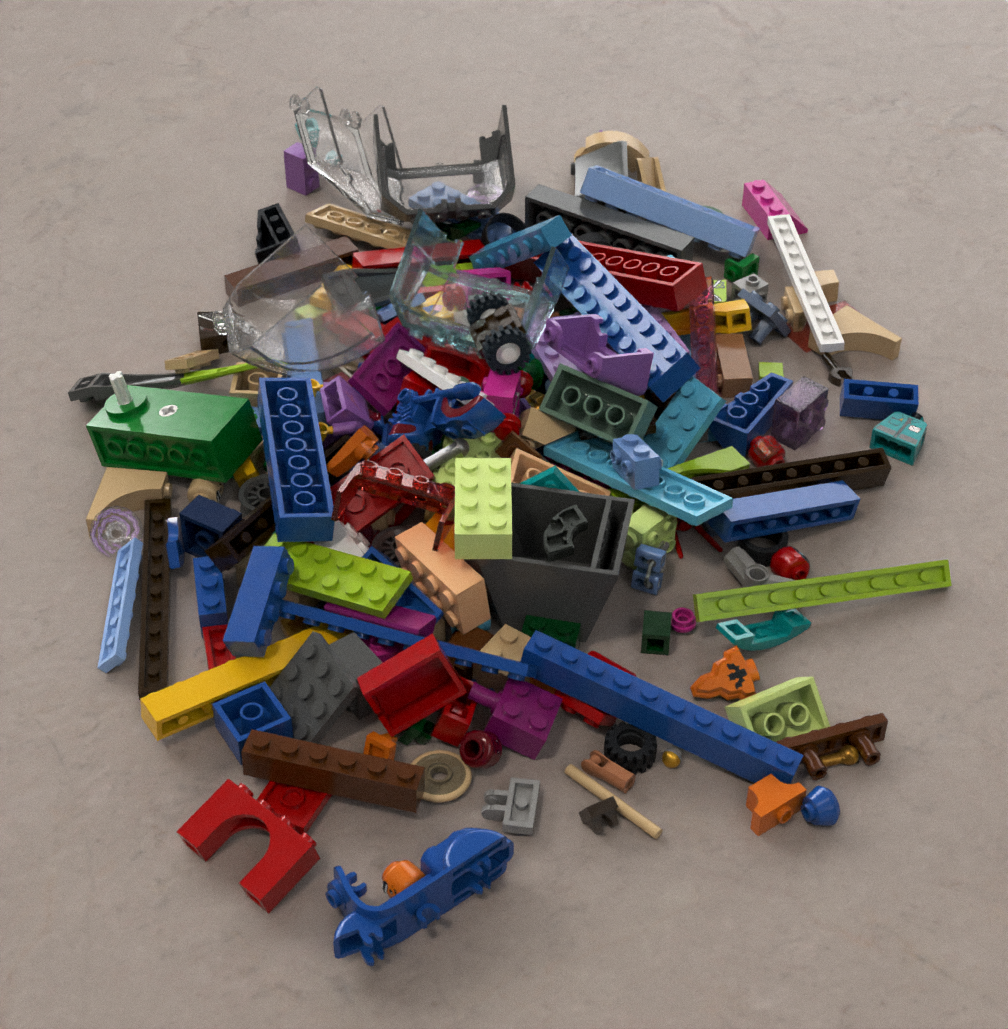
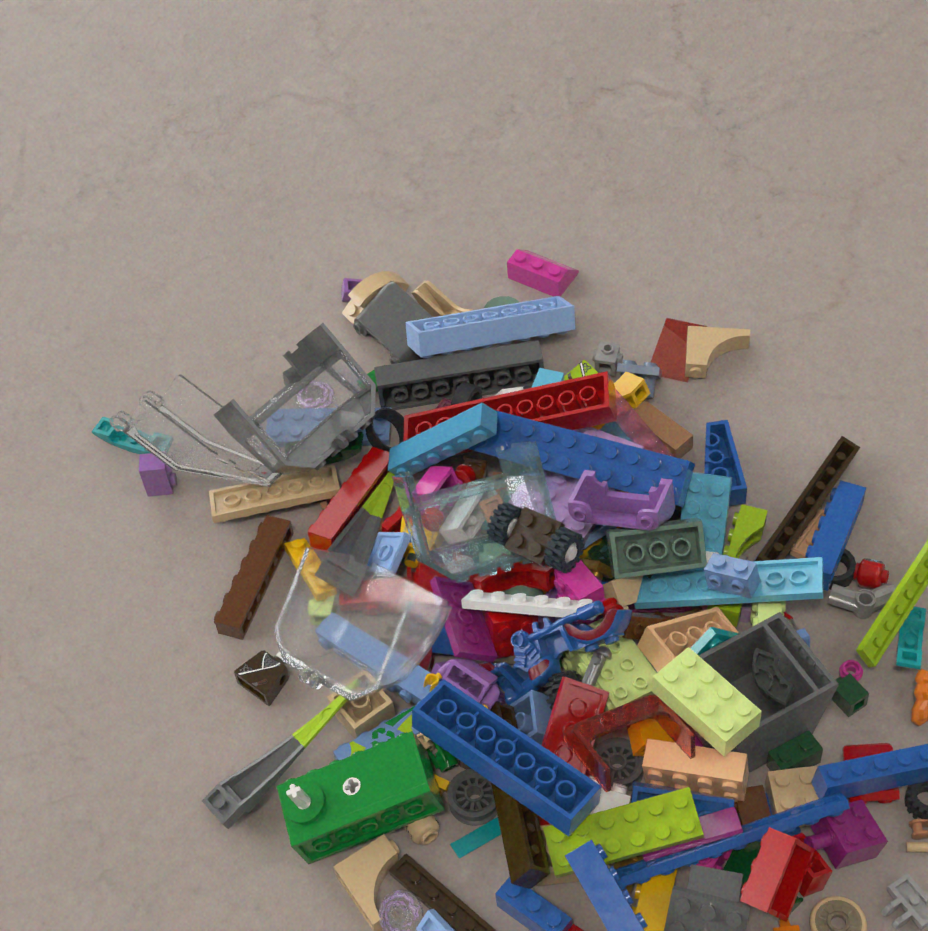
camera: 35 degrees left, 10 degrees up
(175, 543) = (456, 888): blue tile -> none
(191, 361) = (282, 719): tan plate -> none
(204, 523) = (479, 858): dark blue brick -> none
(272, 231) = (211, 555): black wedge -> none
(358, 447) = (535, 713): orange slope -> none
(480, 749) = (849, 881): dark red head -> none
(737, 270) = (576, 344): green bracket -> none
(766, 368) = (687, 417): lime tile -> none
(766, 451) = (762, 491): red head -> none
(792, 306) = (645, 341): tan arch -> none
(799, 413) = (755, 442): clear purple brick -> none
(805, 284) = (646, 326): white plate -> none
(836, 371) = (726, 384): dark brown bar -> none
(877, 399) = (787, 393): blue brick -> none
(900, 436) = (827, 412): teal torso -> none

